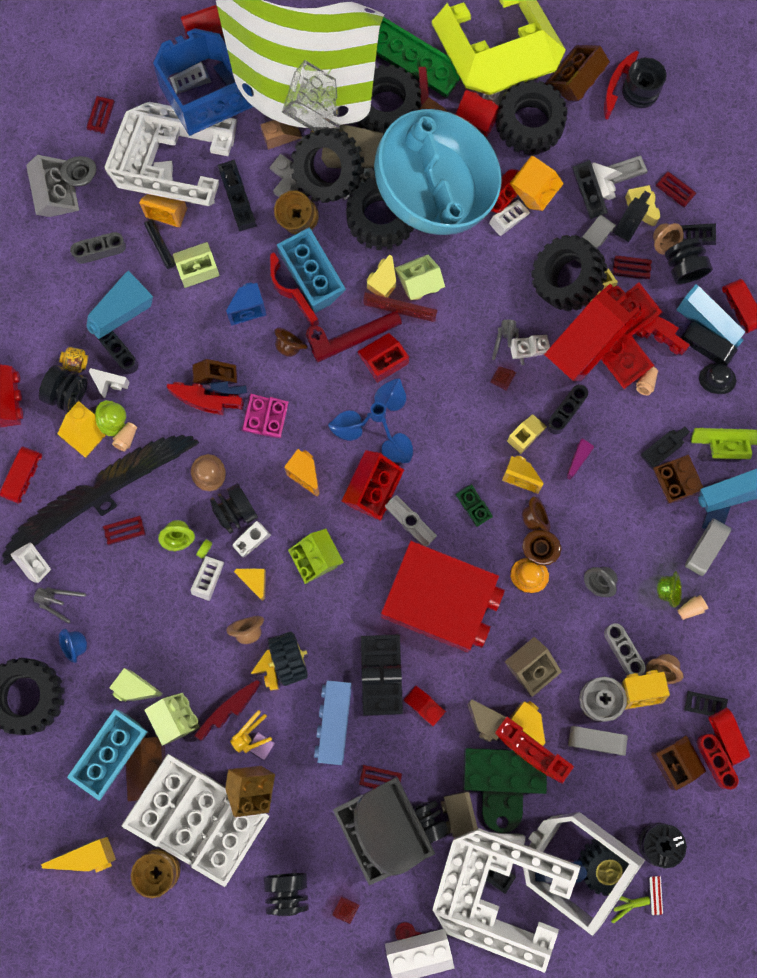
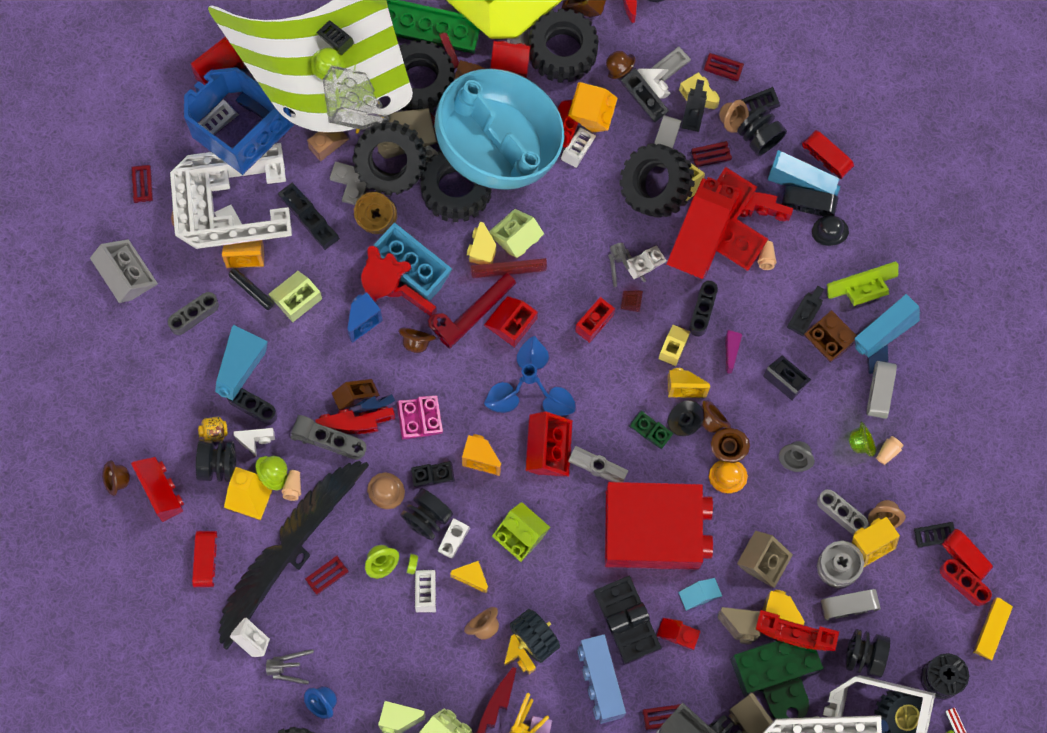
camera: 25 degrees left, 5 degrees down
(78, 171) = (144, 245): dark grey hat -> none
(156, 391) = (305, 430): none -> dark grey piece
(256, 473) = (432, 474): none -> black slope
(278, 271) = (381, 274): none -> red tile
(305, 52) = (324, 59): none -> lime hat
(326, 47) = (344, 45): none -> black slope
(459, 676) = (700, 593): none -> medium azure slope
(460, 383) = (595, 319): none -> red brick
(510, 500) = (681, 413): none -> black dish
(577, 152) = (619, 64): none -> reddish brown hat
(598, 796) = (868, 653): none -> black wheel
(621, 502) = (786, 377): none -> black slope
(679, 763) = (931, 597): reddish brown slope -> none
(727, 815) = (993, 628): none -> yellow slope

